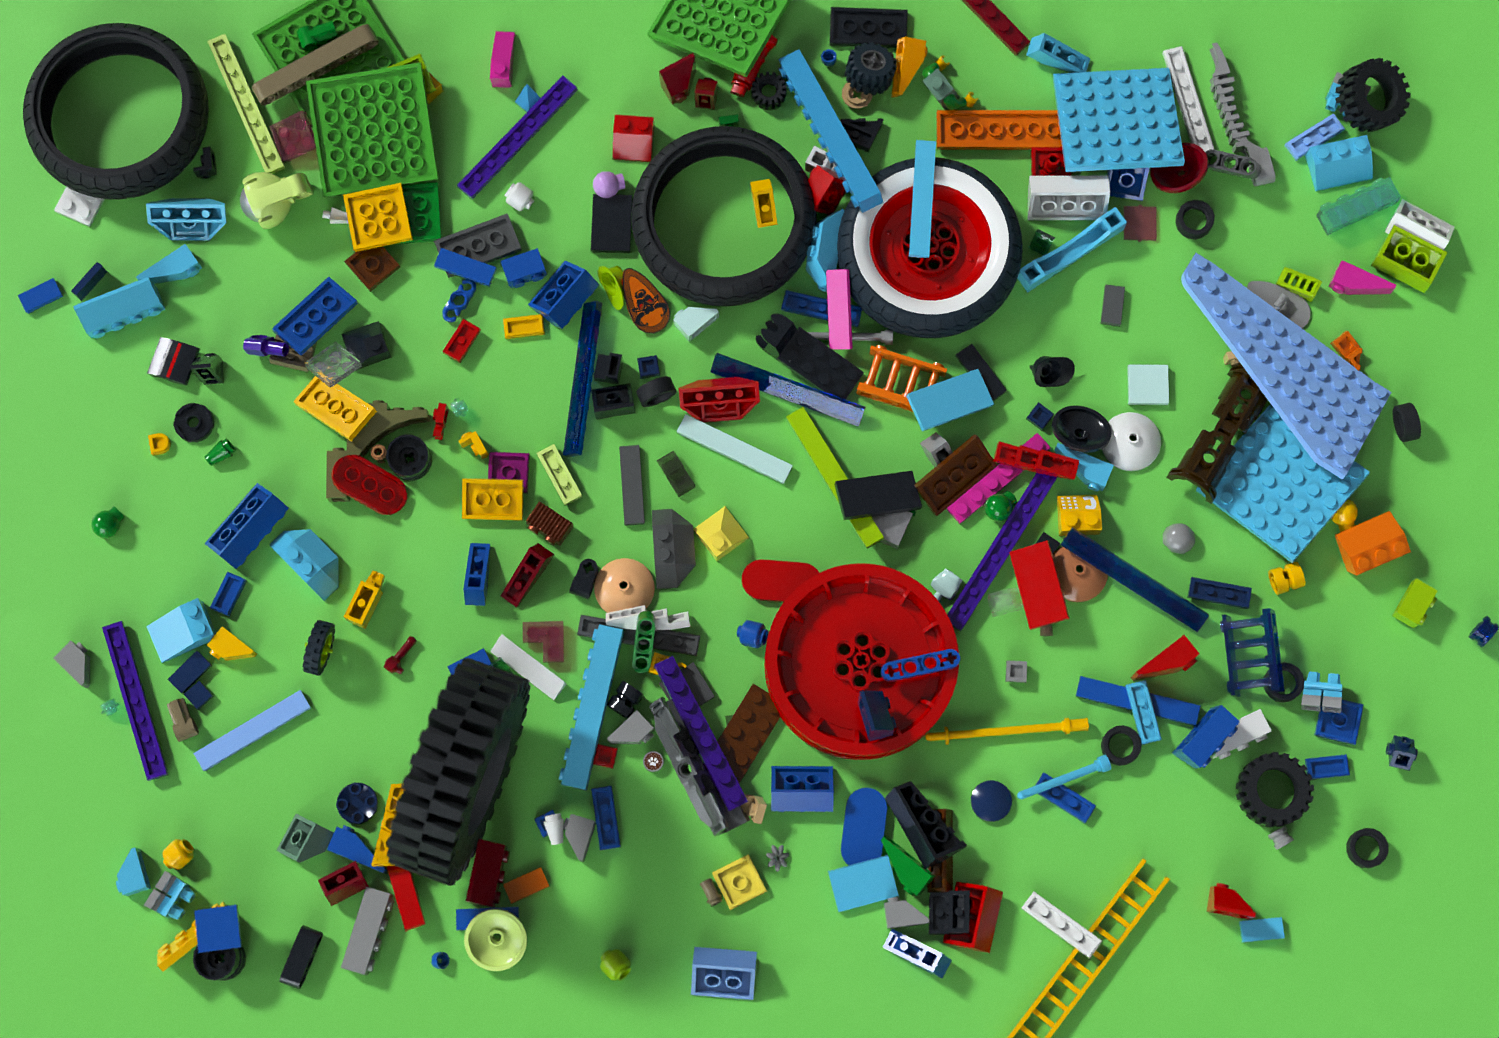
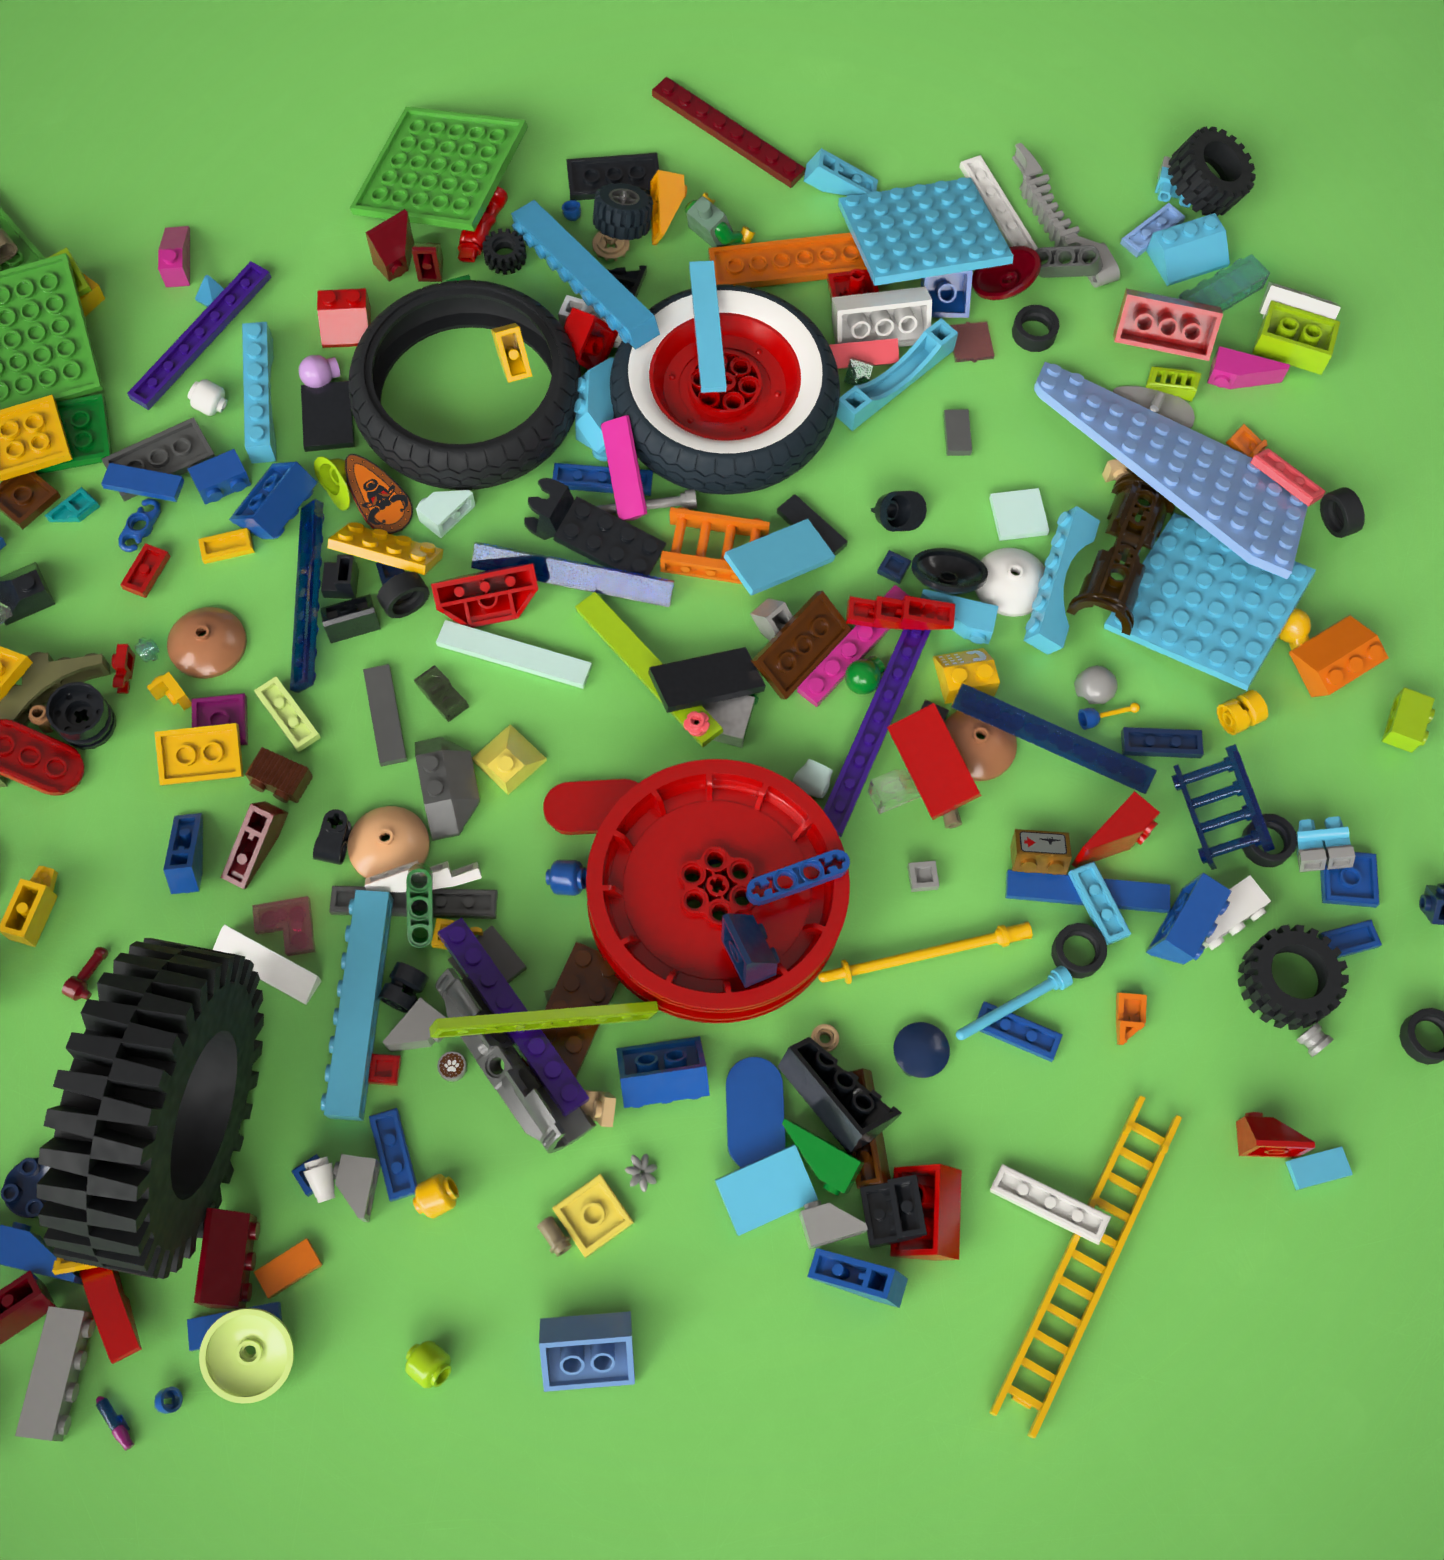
camera: 15 degrees left, 10 degrees down
(404, 969) = (115, 1422): none -> piece
(410, 278) = (73, 508): none -> teal tile
(504, 418) = (207, 654): none -> nougat dish
(559, 197) = (258, 416): none -> medium azure arch
(632, 852) = (435, 1196): none -> yellow head
(646, 349) = (385, 548): none -> yellow plate
(723, 742) = (542, 1019): none -> lime tile
(864, 536) = (699, 729): none -> coral plate
(927, 777) = (830, 1031): none -> tan plate
(1051, 224) = (876, 352): none -> coral tile
(1107, 667) = (1040, 852): none -> pearl gold brick
(1149, 798) = (1129, 1015): none -> orange slope
(1151, 482) = (1048, 620): none -> medium azure arch
(1168, 564) = (1090, 717): none -> blue hinge
(1302, 235) = (1167, 324): none -> brick
(1369, 386) = (1288, 477): none -> coral tile

